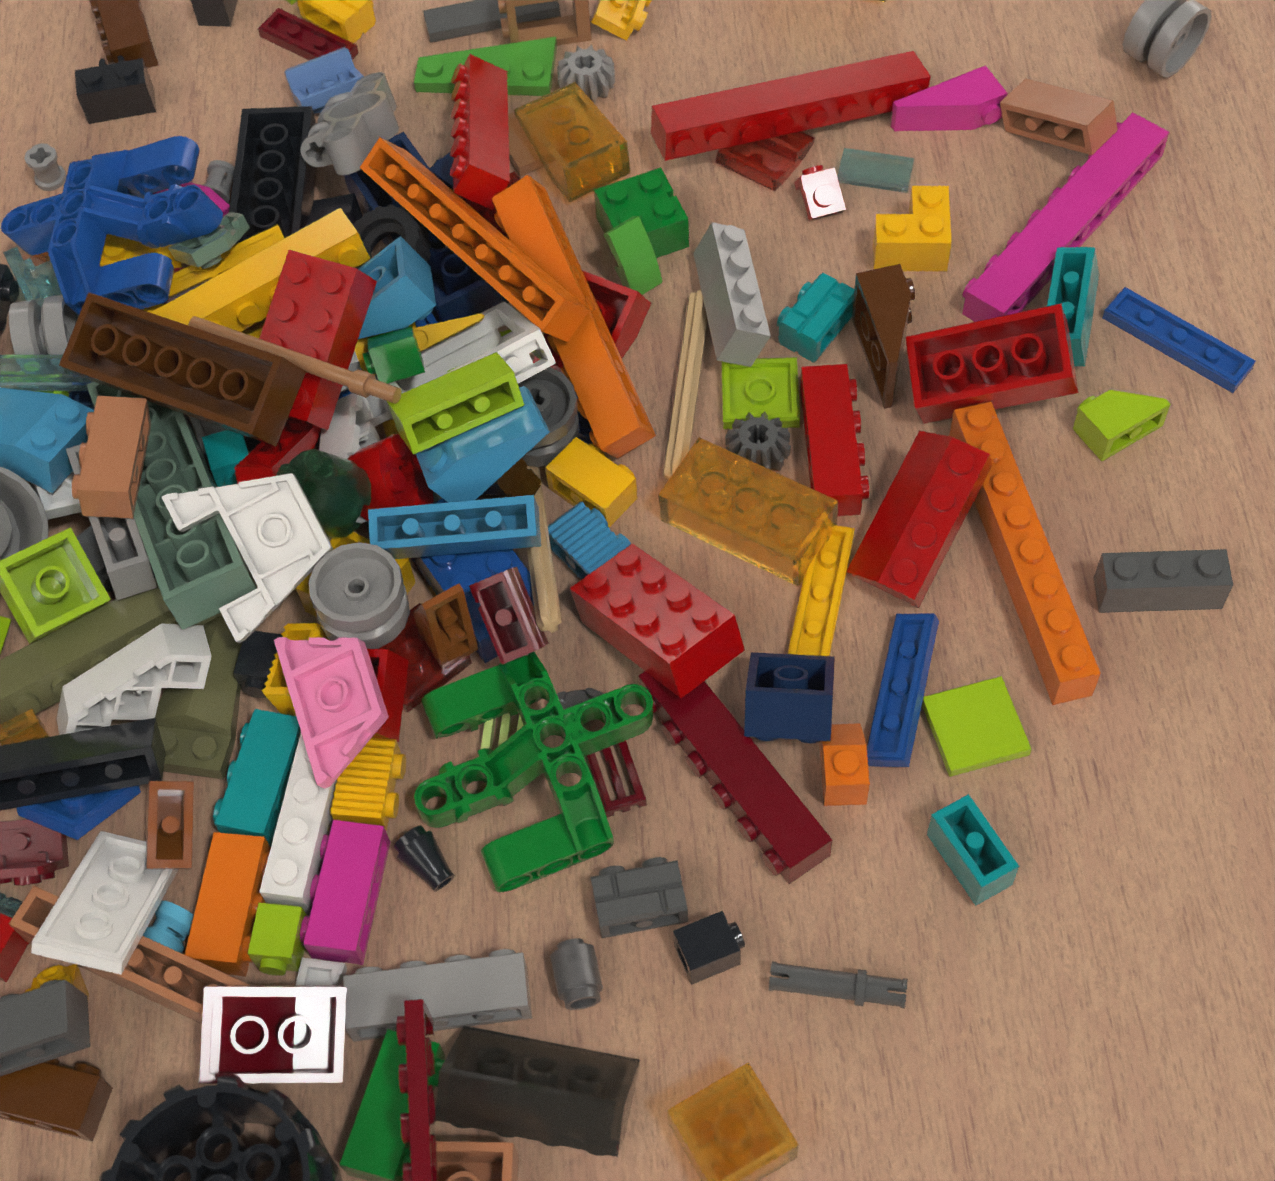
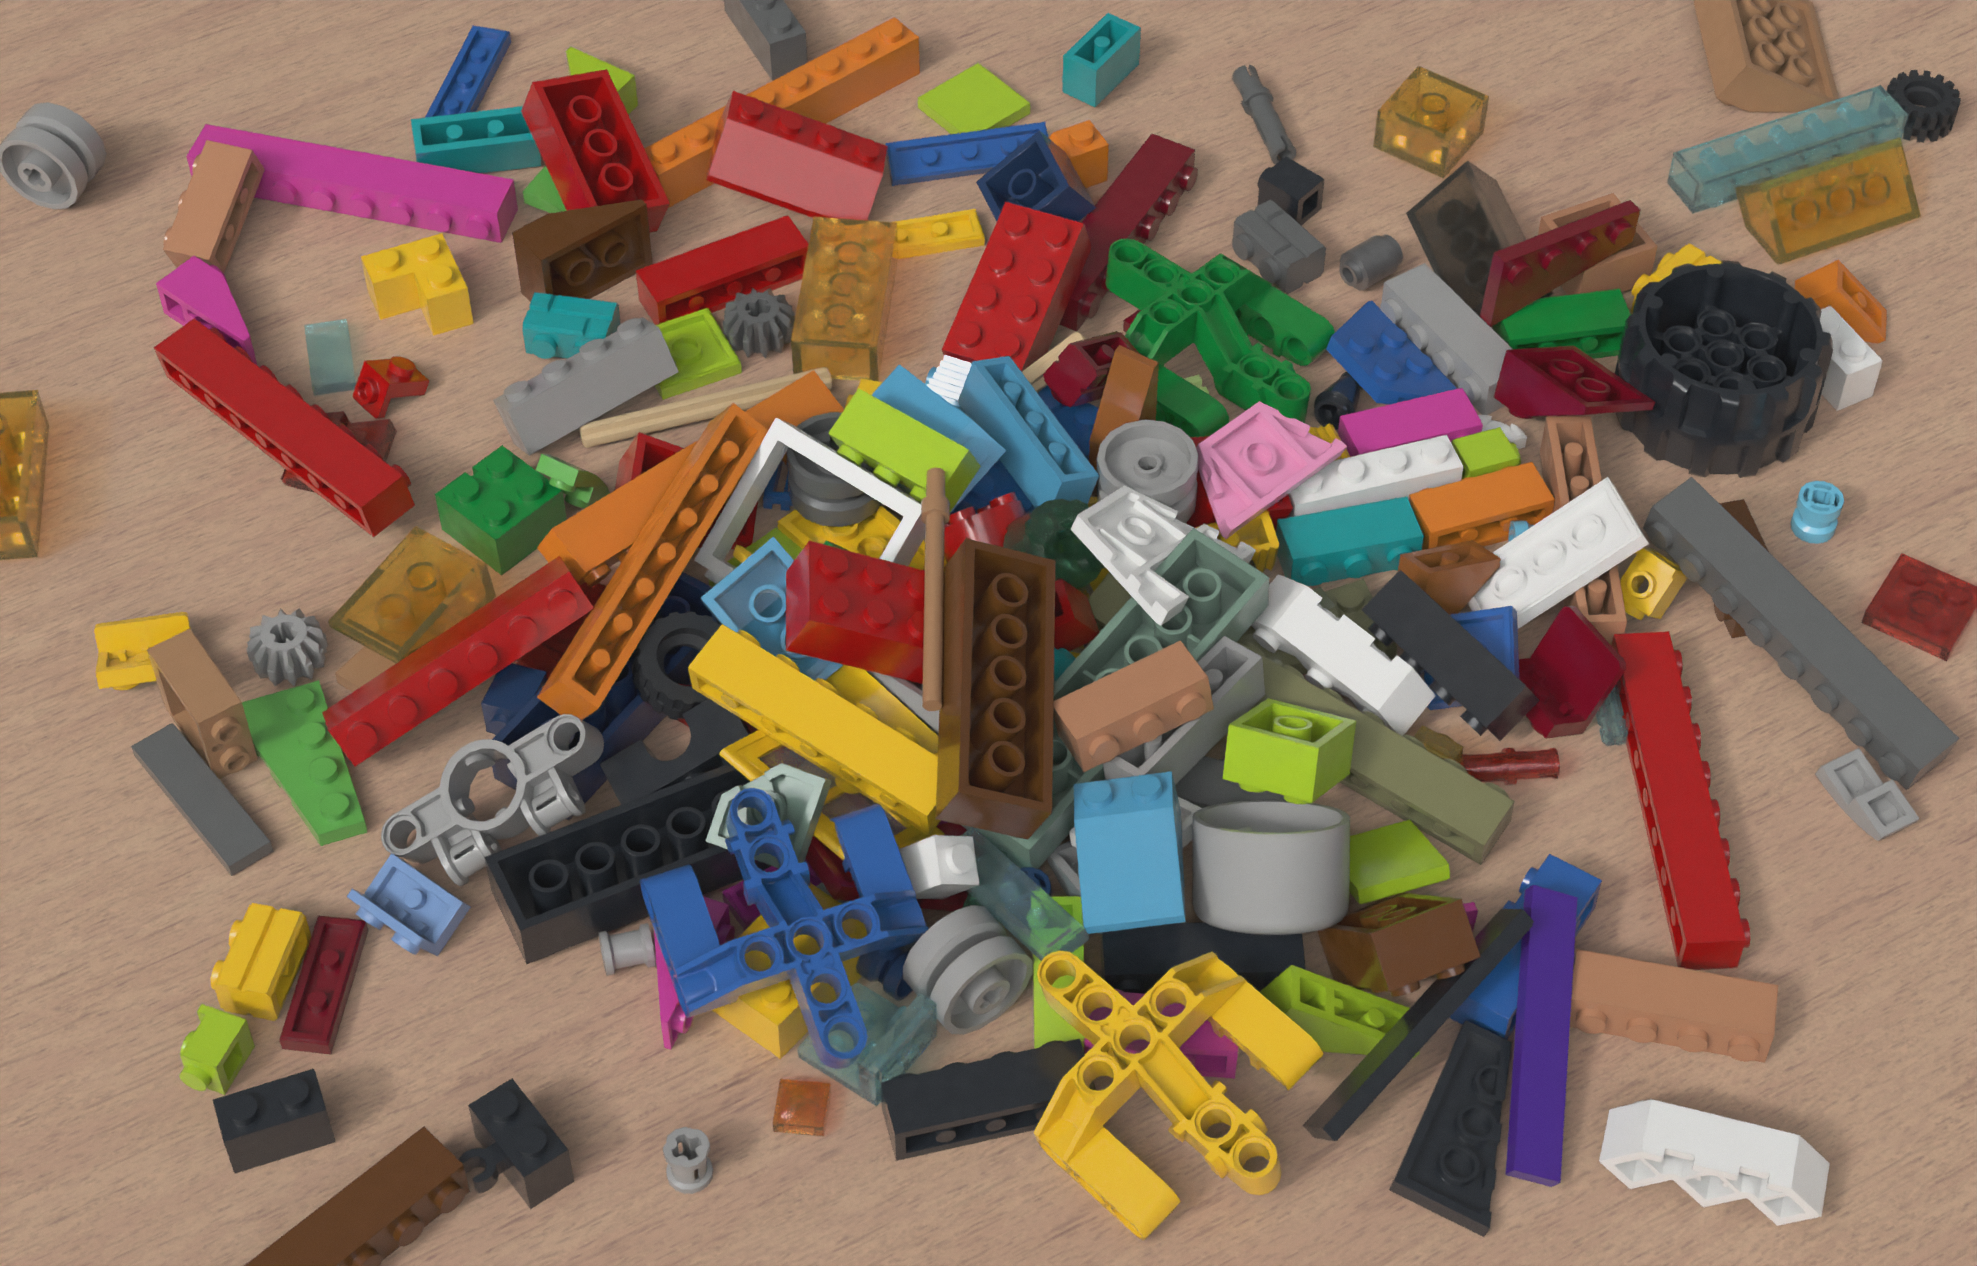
camera: 120 degrees left, 10 degrees down
(442, 918) = (1385, 358): none -> blue wing

